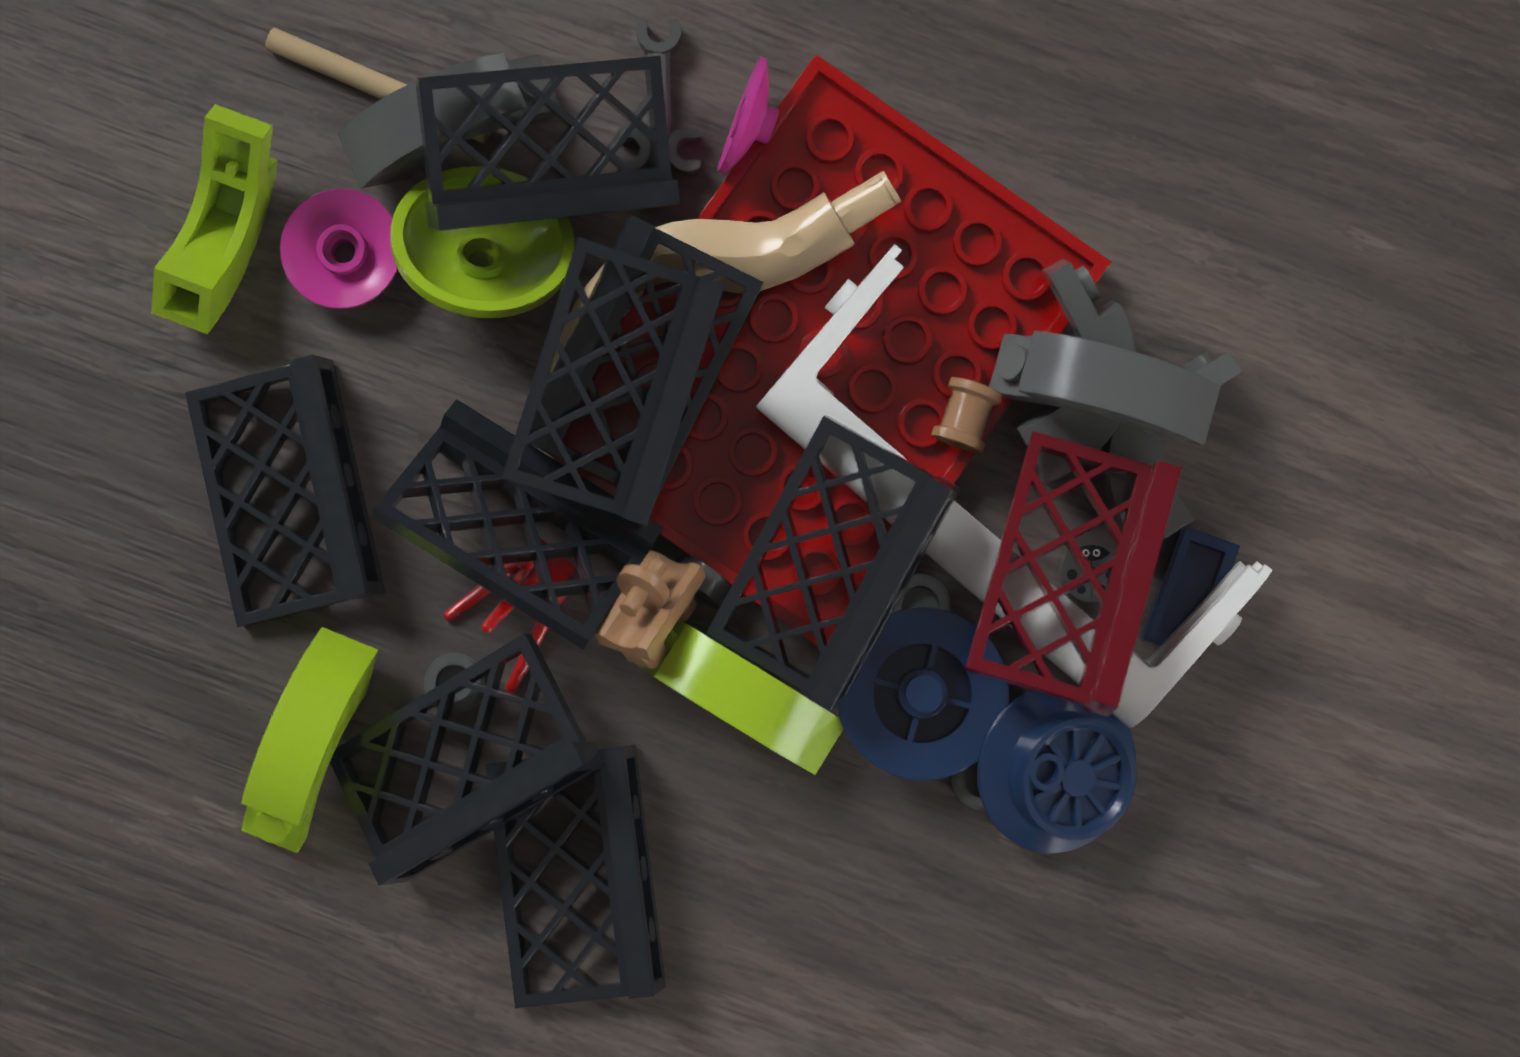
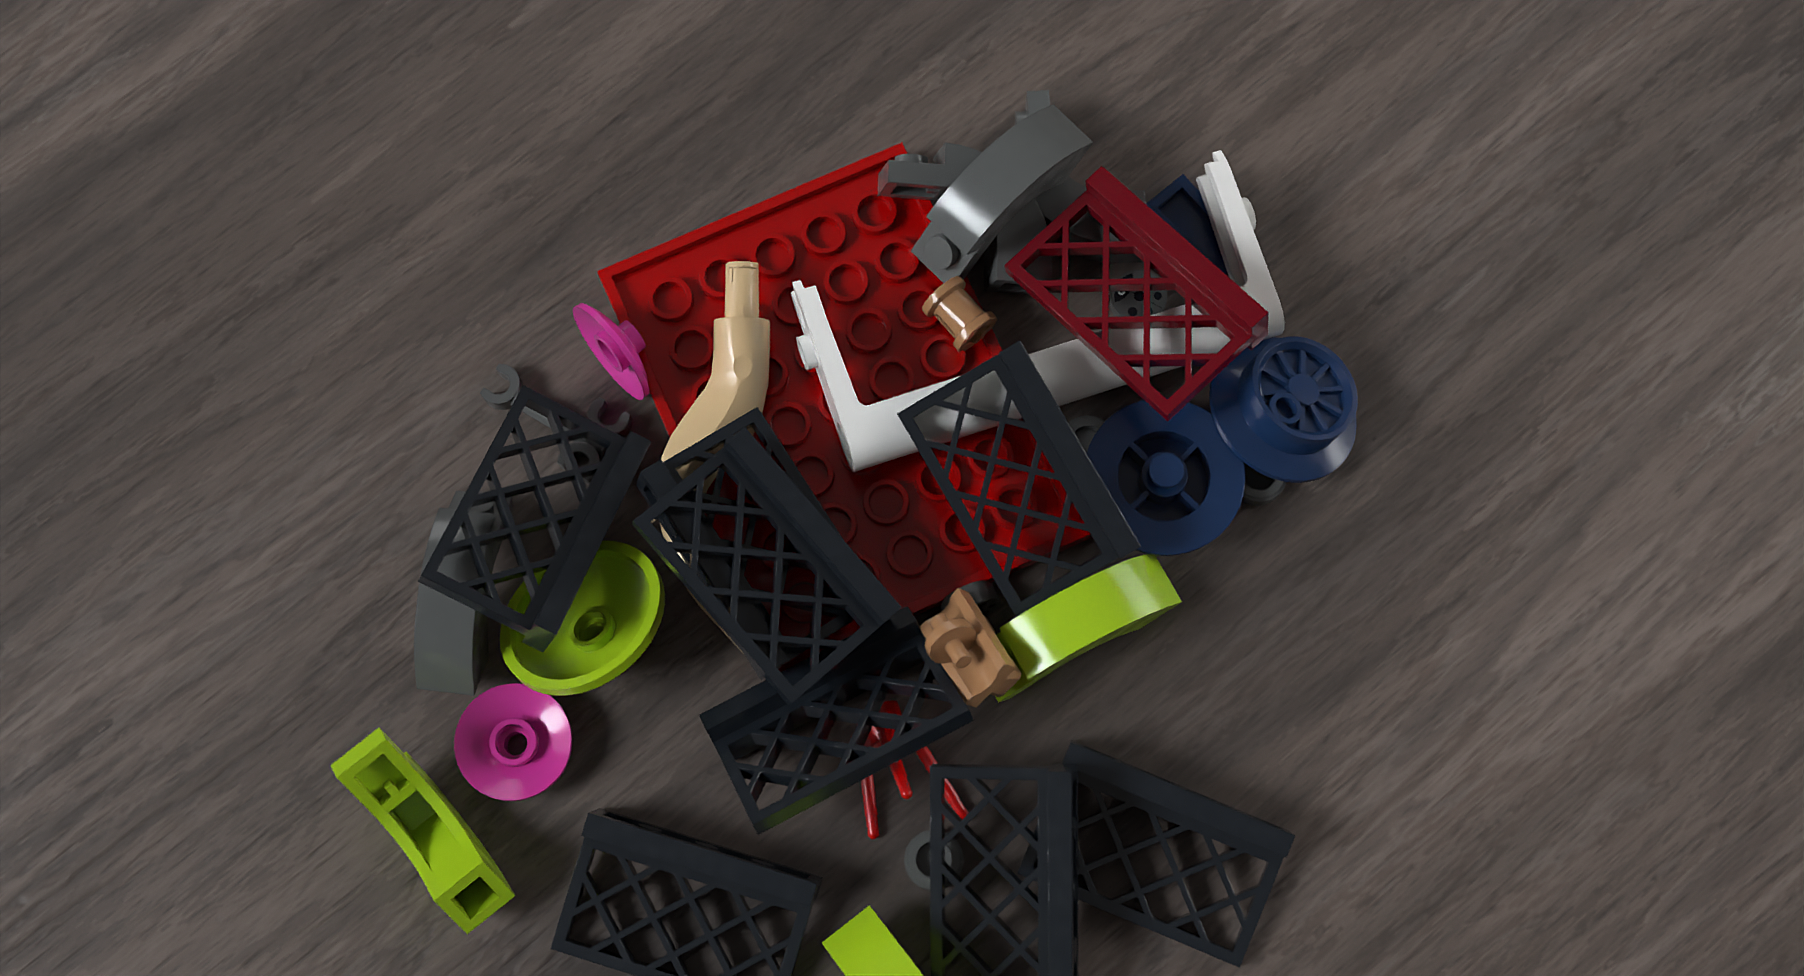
camera: 55 degrees left, 10 degrees down
(335, 66) = (357, 663): tan bar -> none

